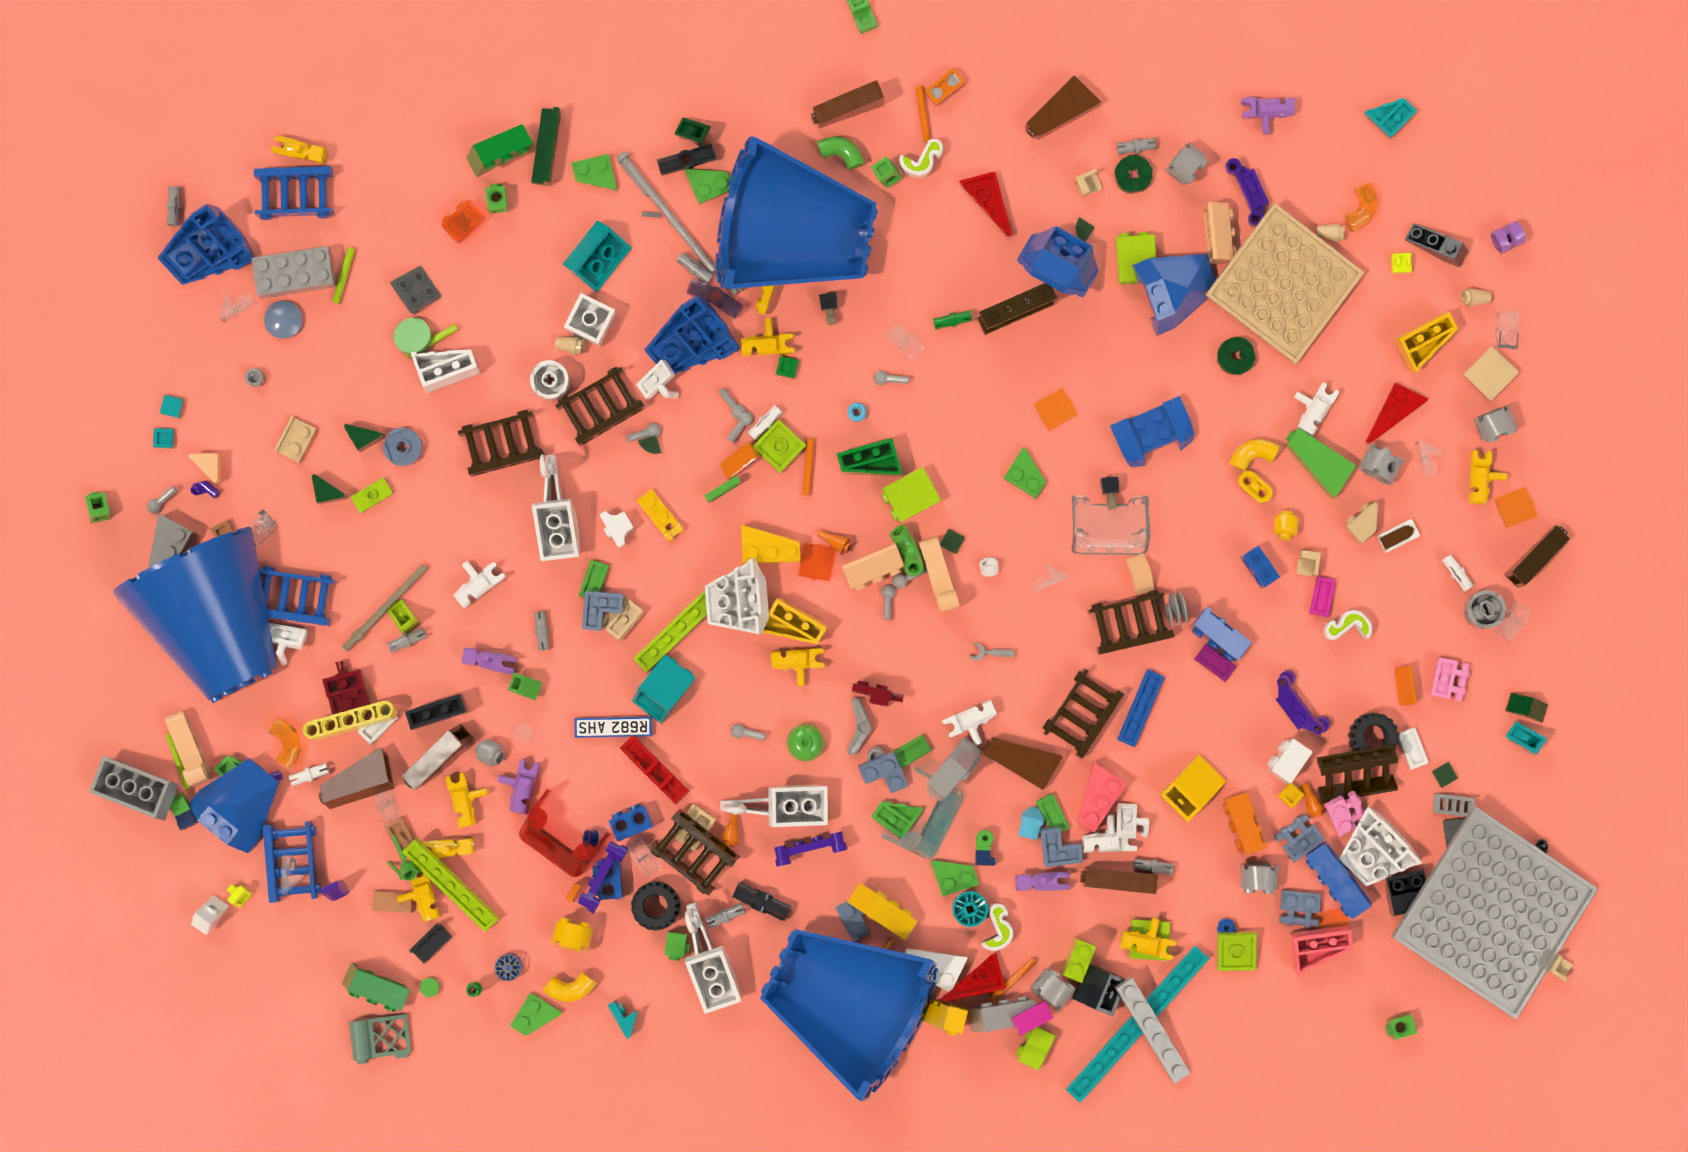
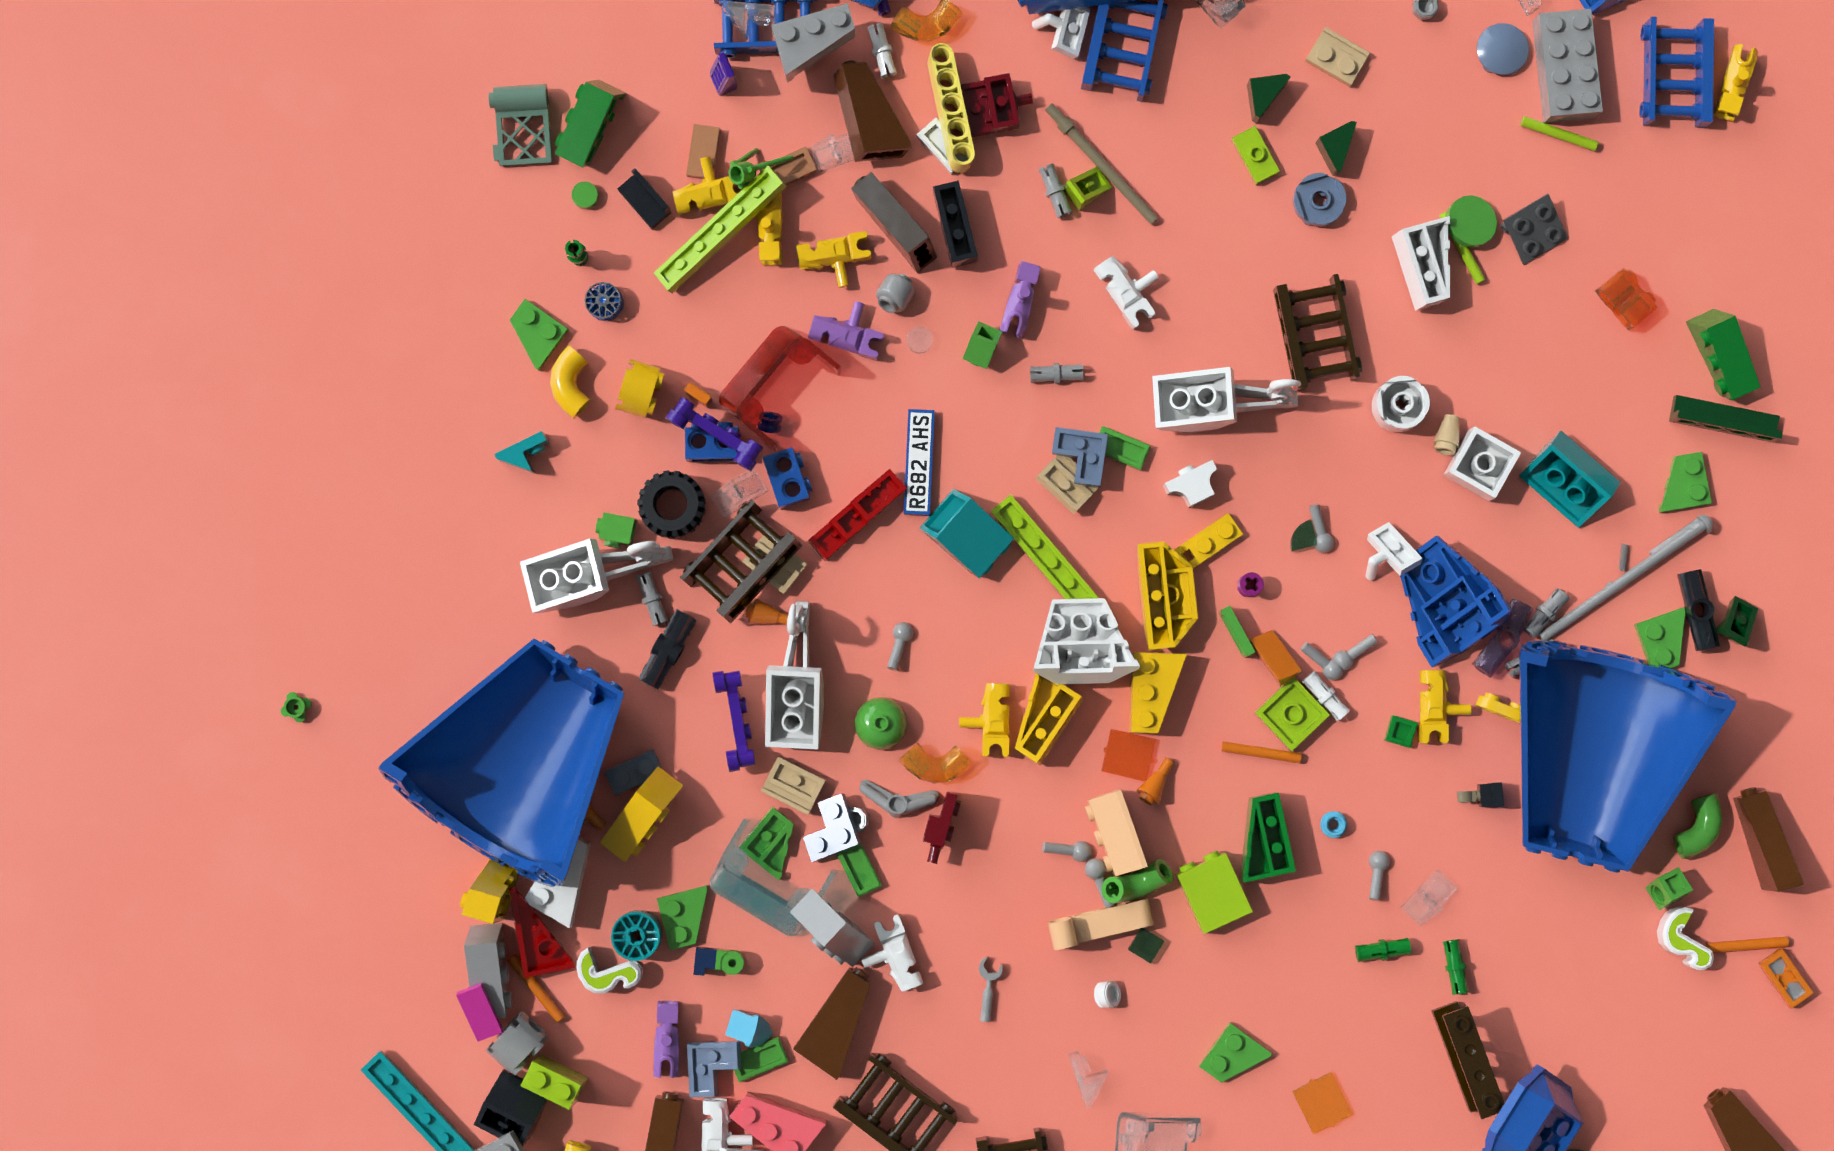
camera: 95 degrees right, 0 degrees up
(304, 826) = (812, 37): none -> light grey wedge
(497, 207) = (1644, 347): bright green brick -> none
(600, 425) = (1345, 492): dark brown fence -> none
(688, 475) = (1258, 586): none -> magenta bush
(699, 542) = (1165, 594): none -> yellow wedge
(835, 701) = (933, 768): none -> clear yellow cylinder
(854, 803) = (793, 785): none -> tan plate
(944, 372) = (1383, 949): none -> green pin
(987, 194) = (1630, 1027): red wing -> none
(1035, 1047) = (439, 1013): lime brick -> none

